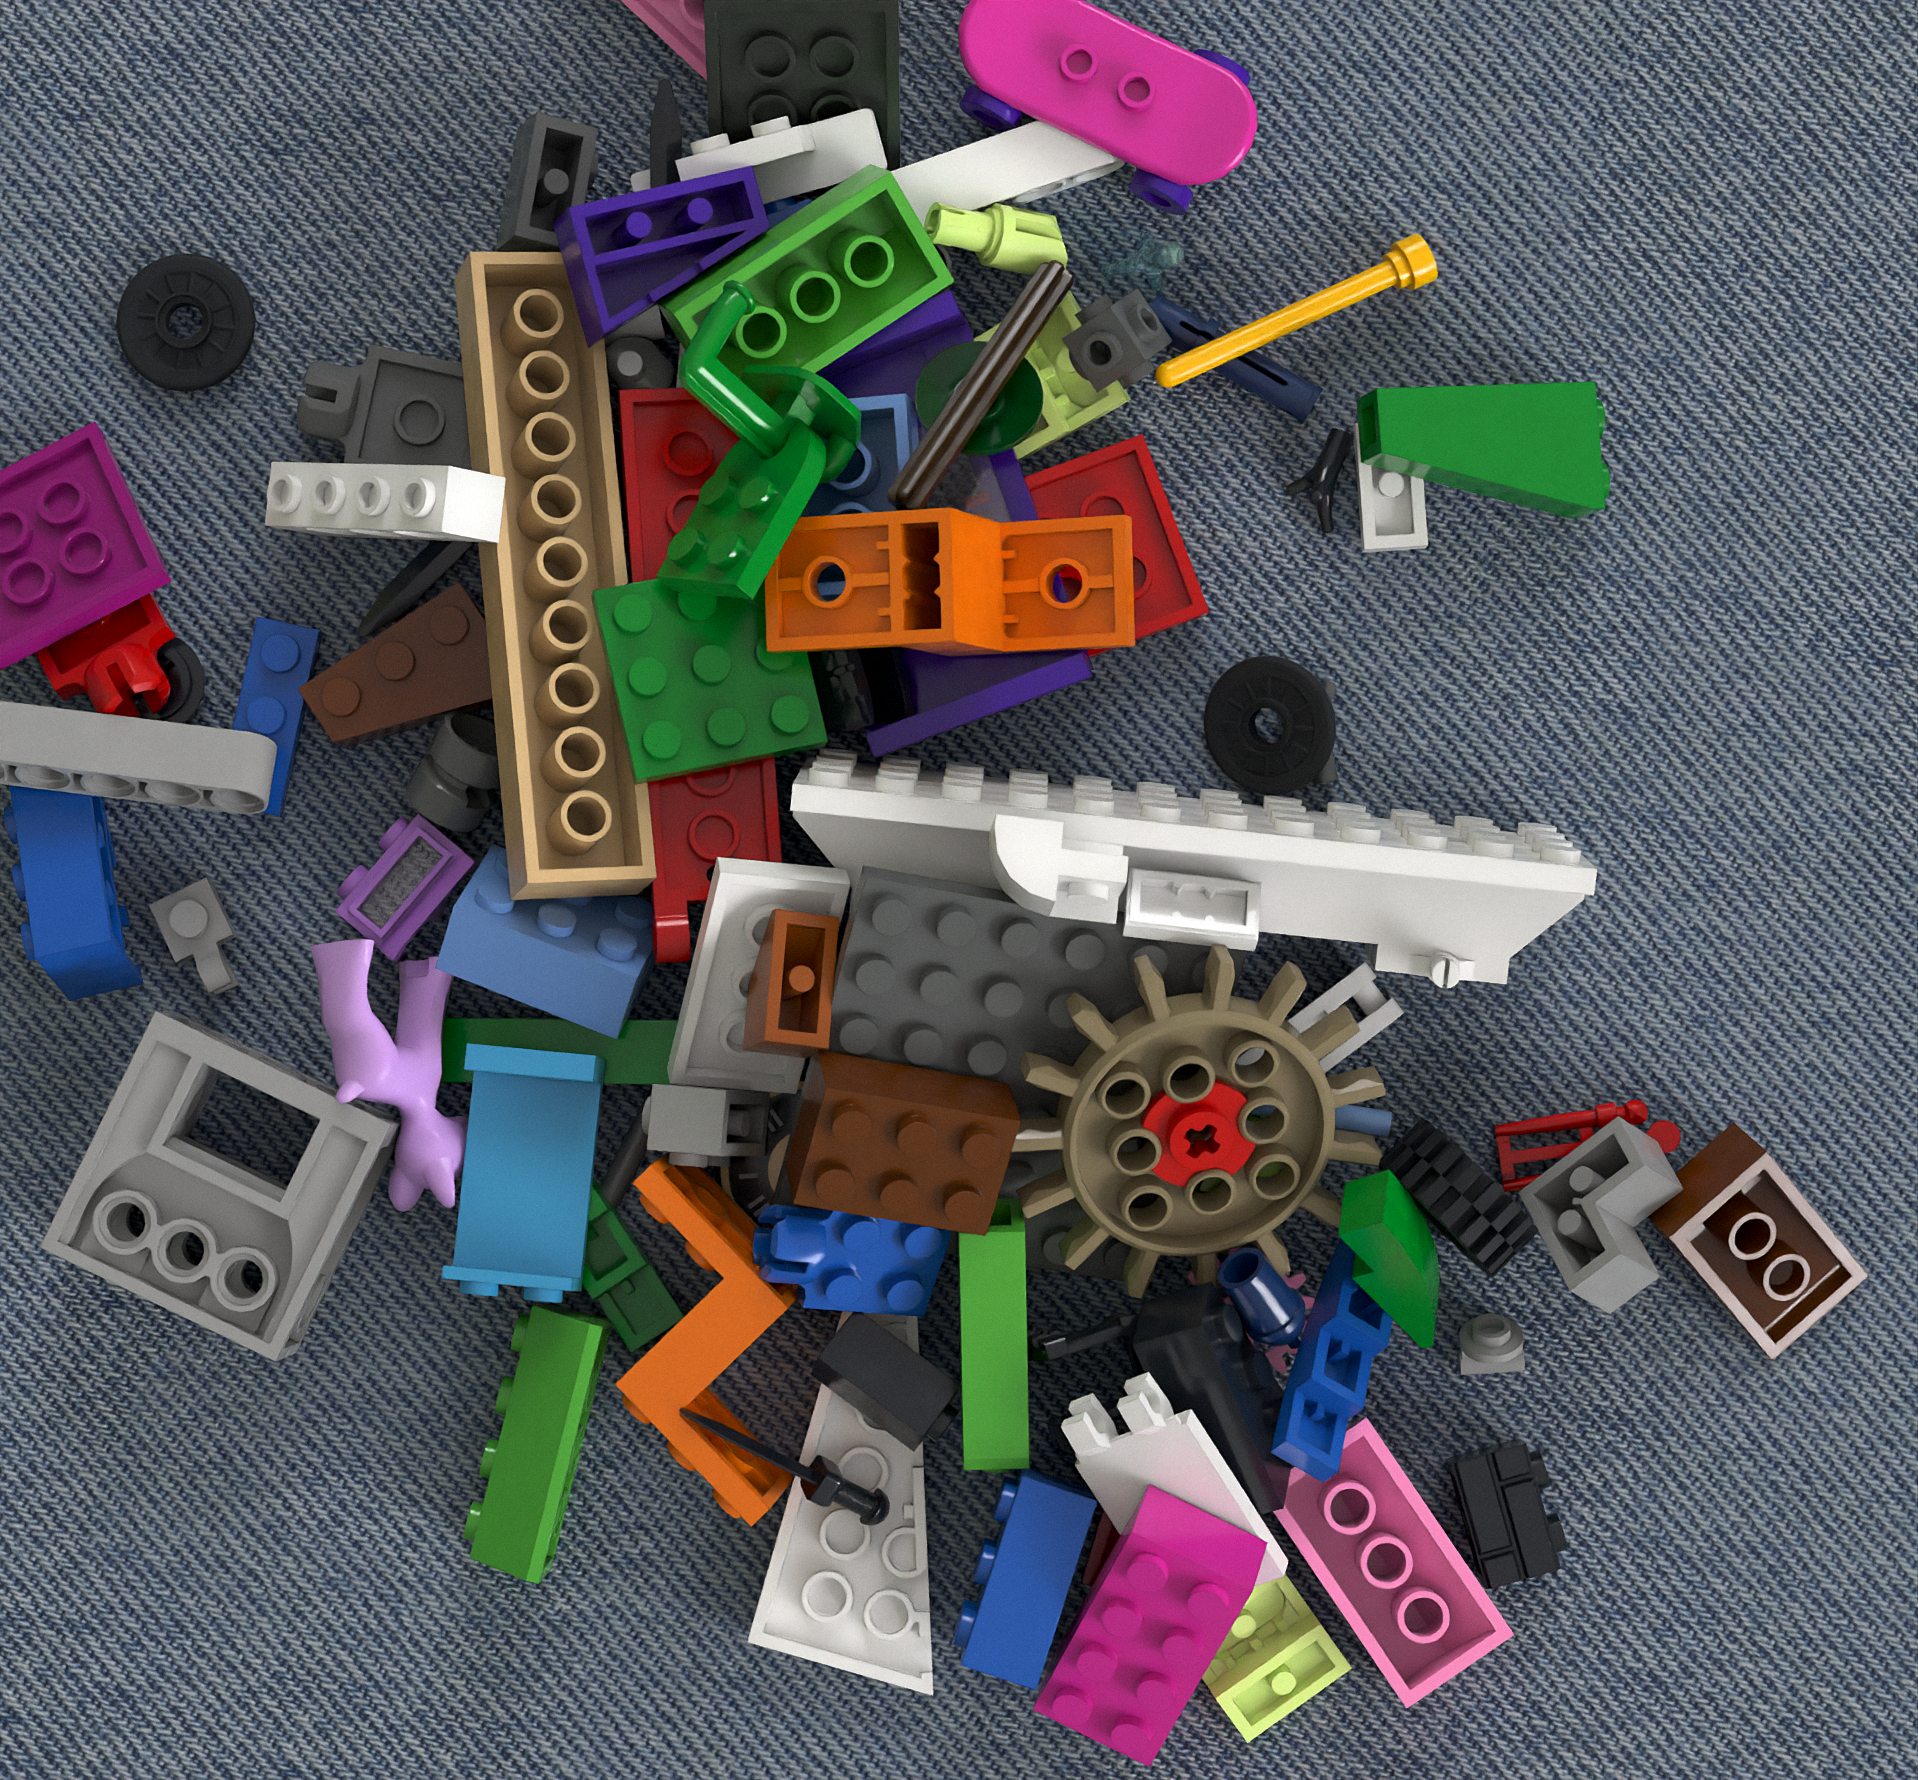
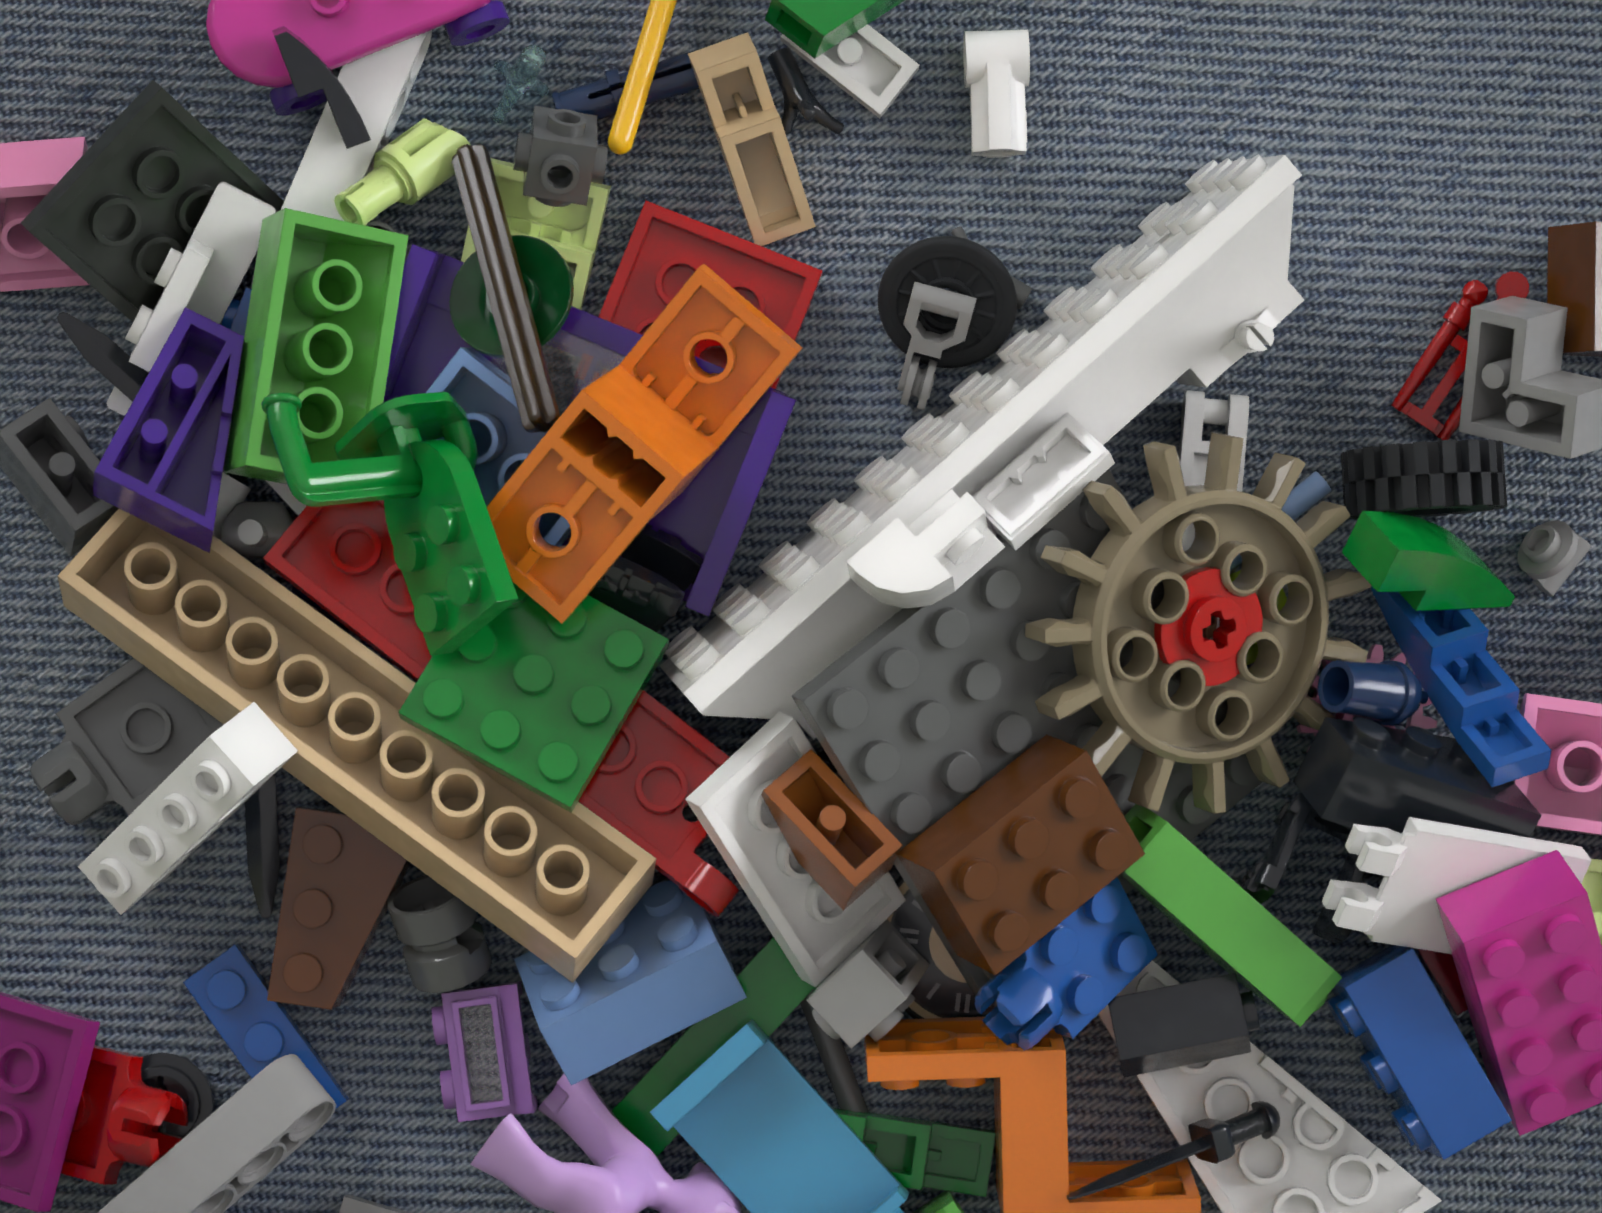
camera: 50 degrees left, 0 degrees up
(1010, 101) = (312, 74): none -> black slope
(1190, 753) = (919, 381): none -> light grey piece
(1258, 471) = (752, 139): none -> tan slope
(1471, 611) = (997, 75): none -> white piece

